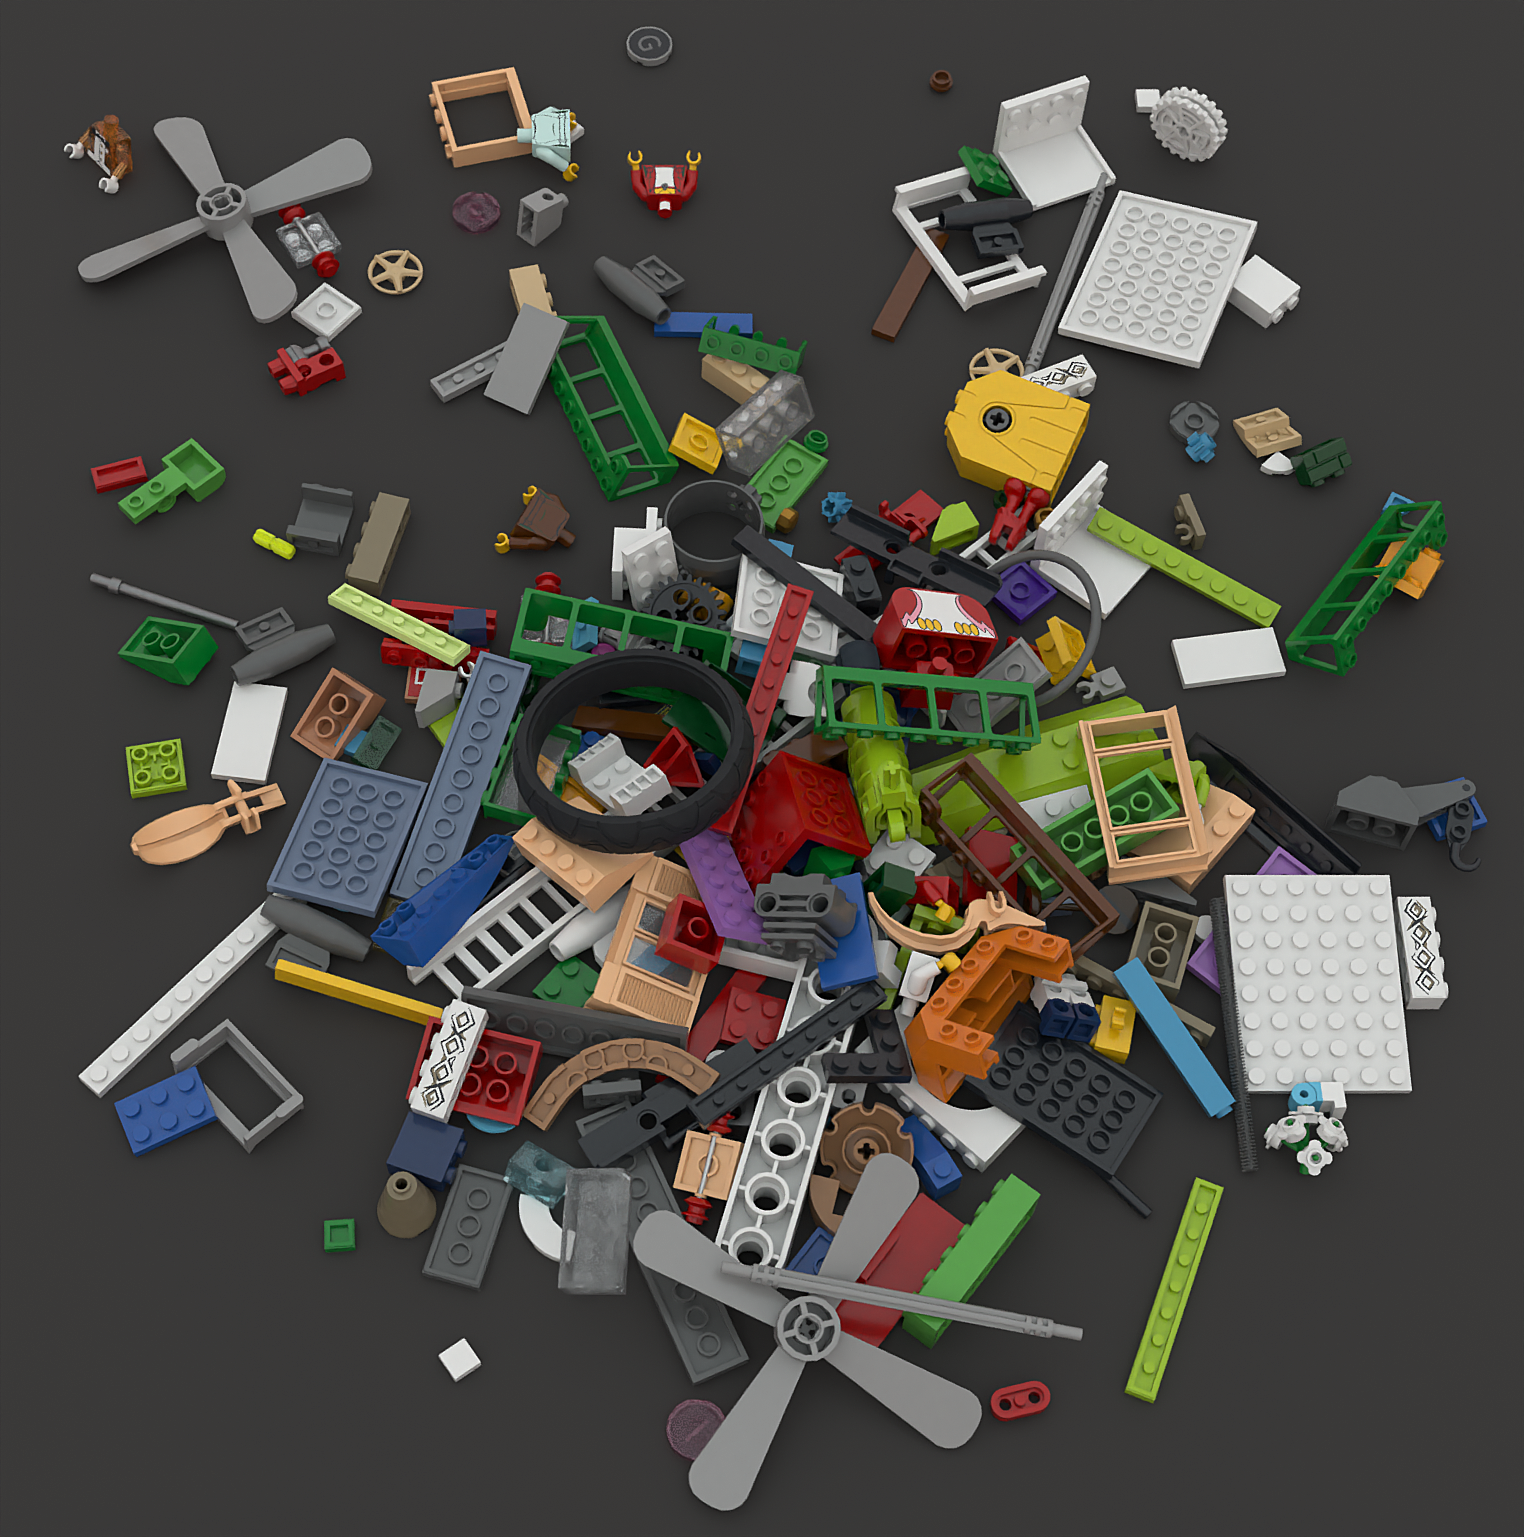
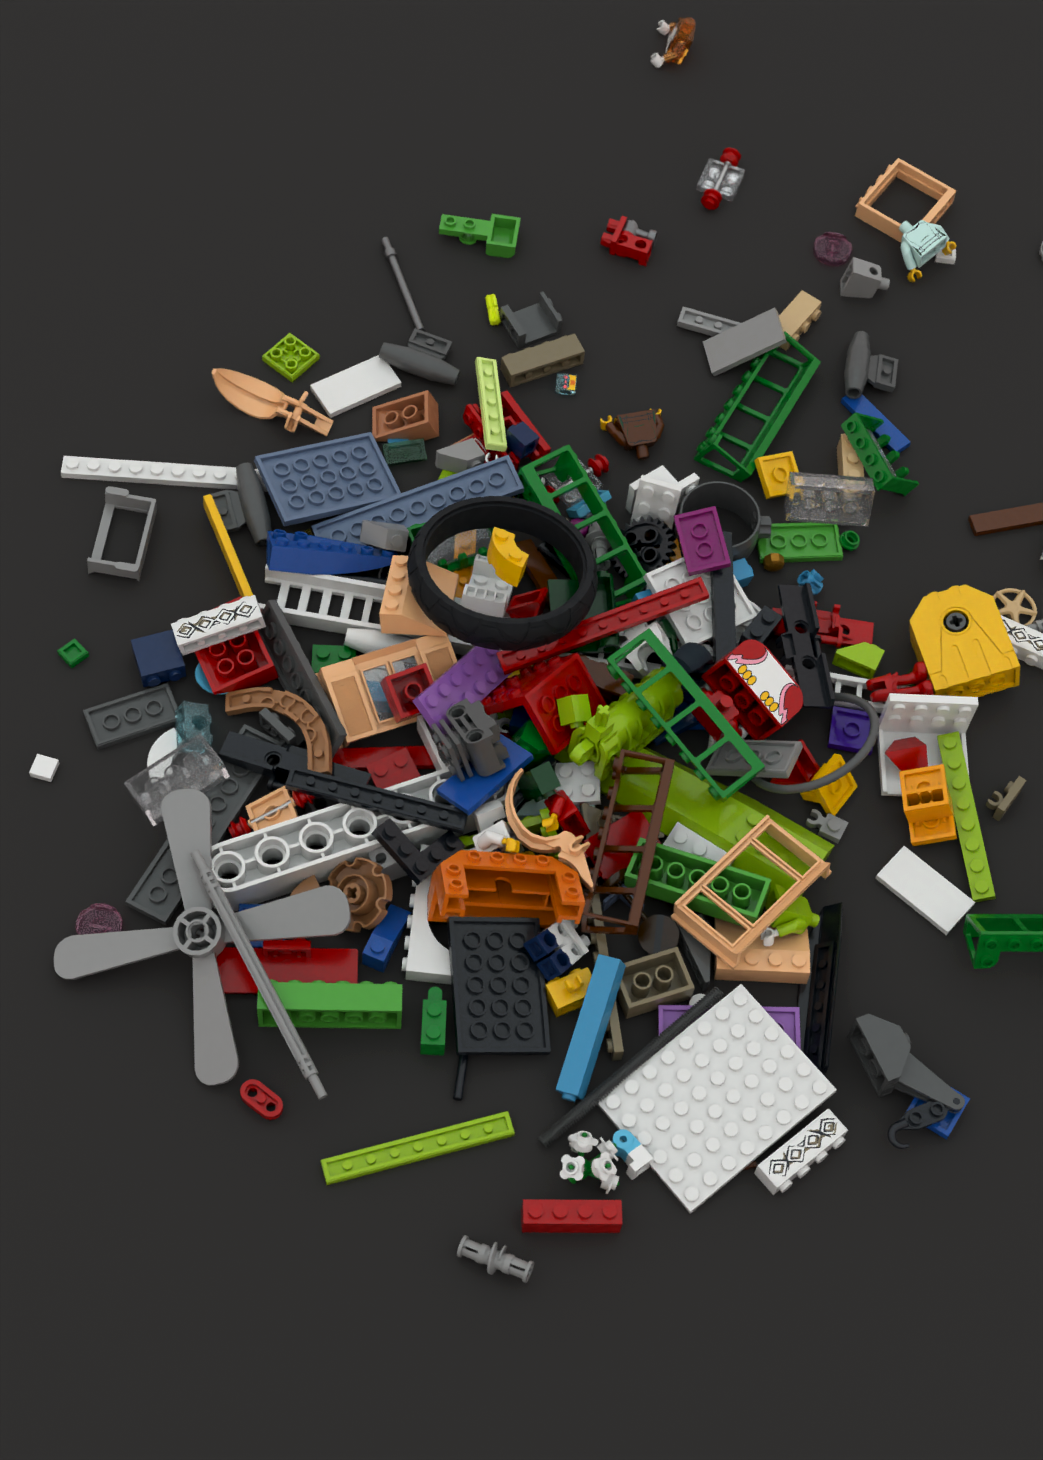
camera: 50 degrees right, 0 degrees up
(119, 474) = (466, 204): red tile -> none
(165, 1111) = (77, 512): blue plate -> none
(170, 649) = (372, 308): green slope -> none
(228, 212) = (693, 125): light grey piece -> none
(326, 312) = (680, 224): white tile -> none
(395, 272) = (744, 238): tan wheel -> none
(406, 1206) = (116, 670): dark tan cone -> none
(423, 545) = (566, 384): none -> clear light blue tile
(473, 829) = (384, 535): none -> light grey slope
(636, 729) = (506, 557): none -> yellow brick
(664, 186) = (956, 330): red torso -> none
(741, 554) = (702, 541): none -> magenta plate
(843, 800) = (574, 710): none -> lime brick
(1056, 1178) = (433, 1023): none -> green brick
(1094, 561) = (908, 753): none -> red slope
(1155, 587) = (928, 805): none -> light orange bracket
(1345, 1296) = (495, 1259): none -> light grey piece
(1348, 1197) = (571, 1216): none -> red brick

